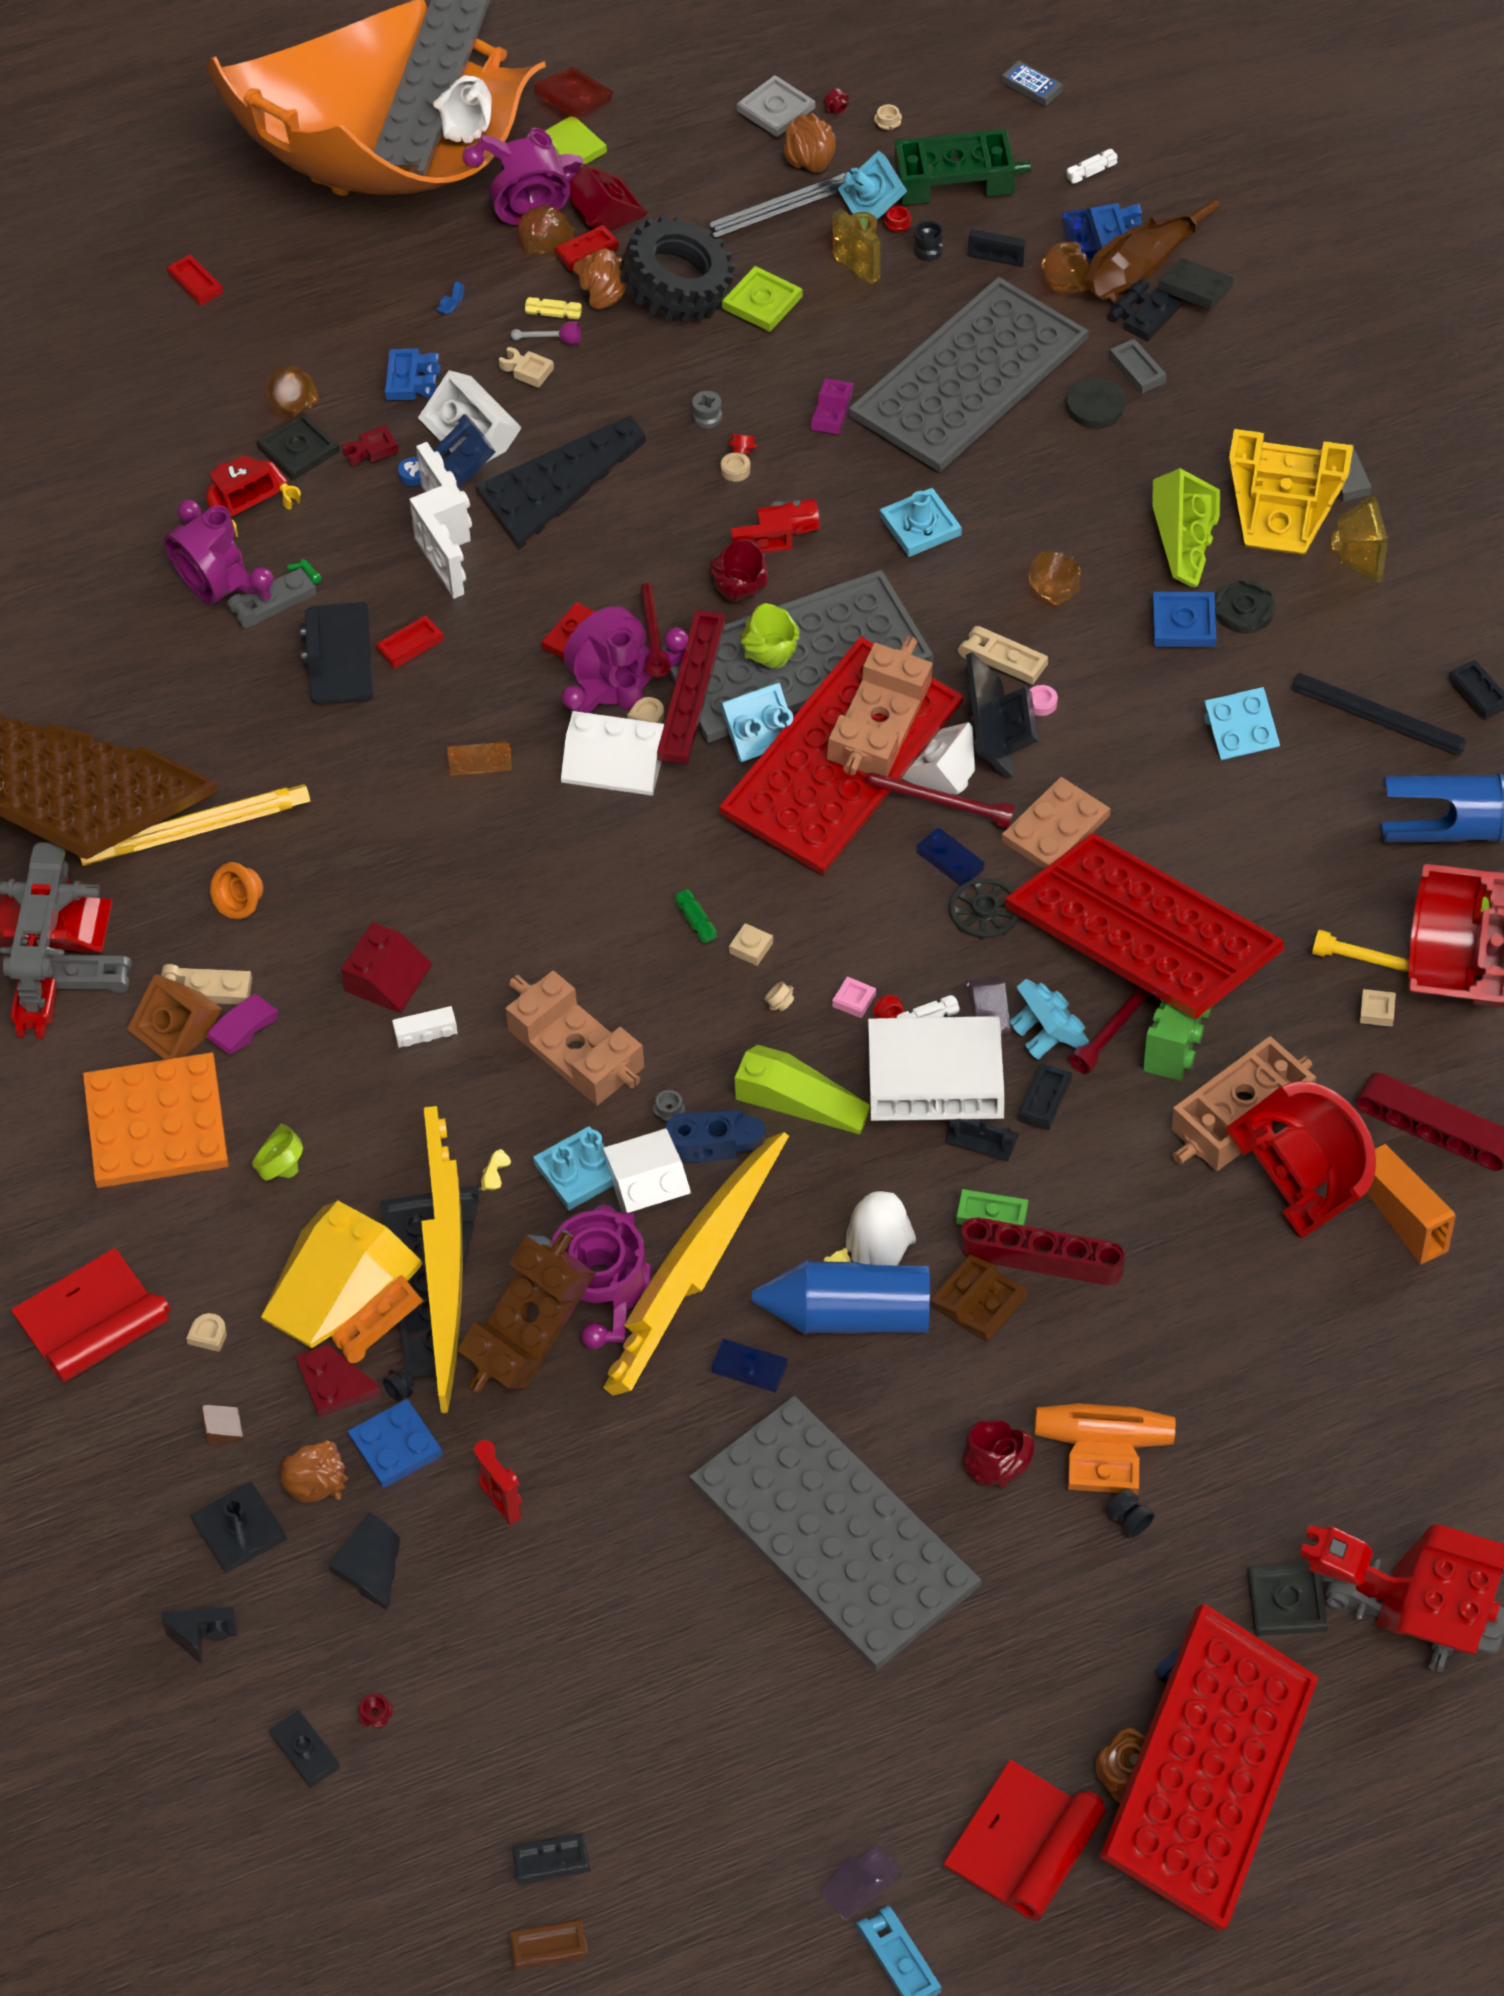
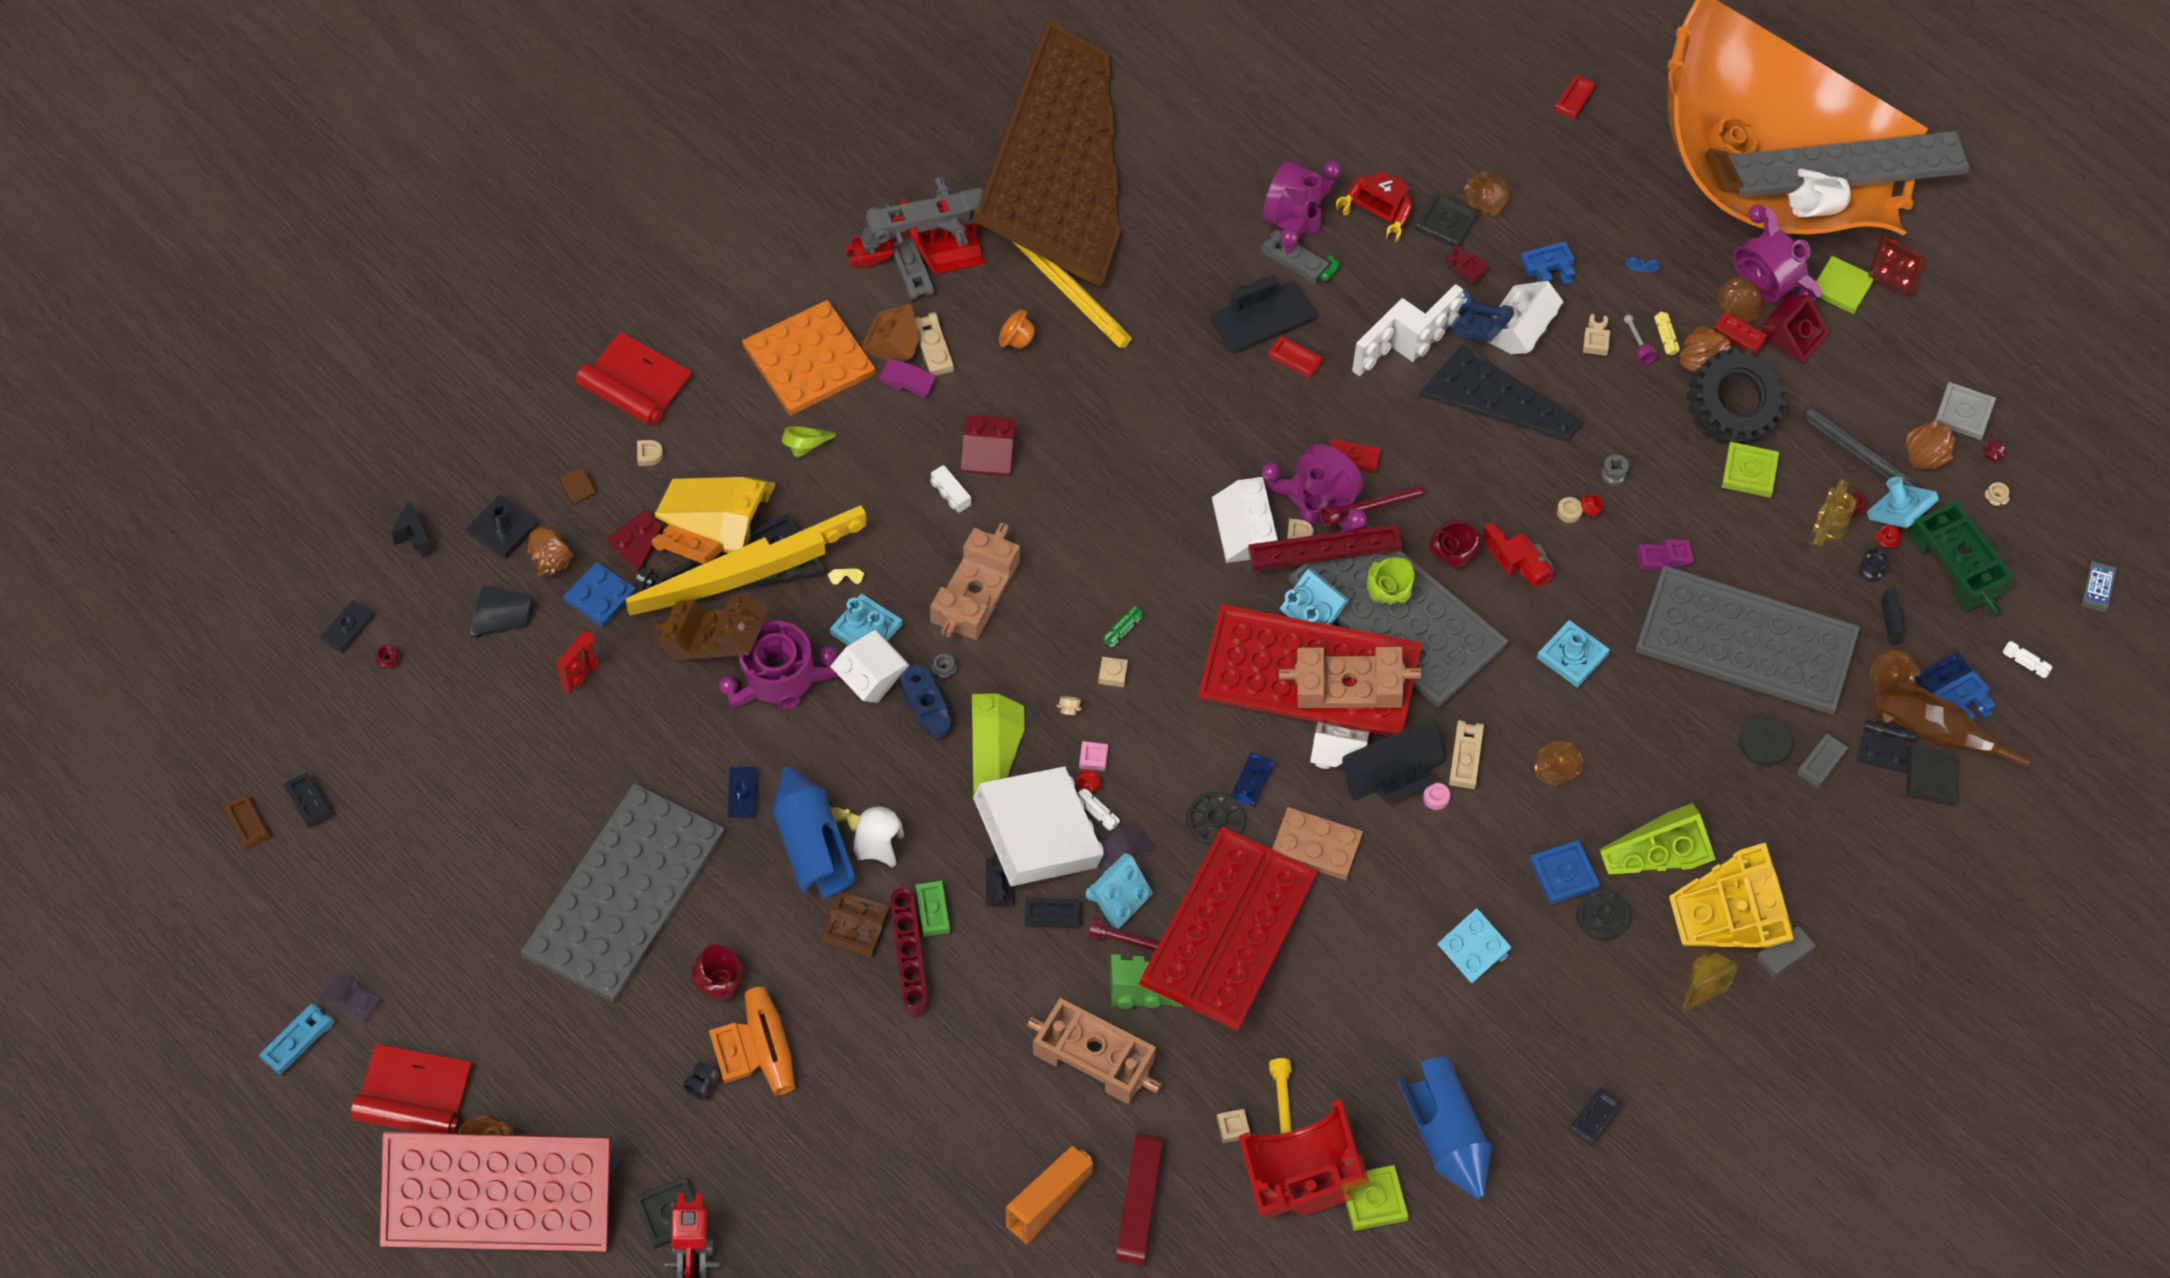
camera: 65 degrees right, 5 degrees up
(479, 758) = (1202, 432): clear orange hinge -> none
(690, 1263) = (810, 723): yellow slope -> none
(999, 813) = (1306, 801): dark red piece -> none
(1318, 1146) = (1050, 1105): red piece -> none
(1379, 713) = (1535, 1047): black axle -> none

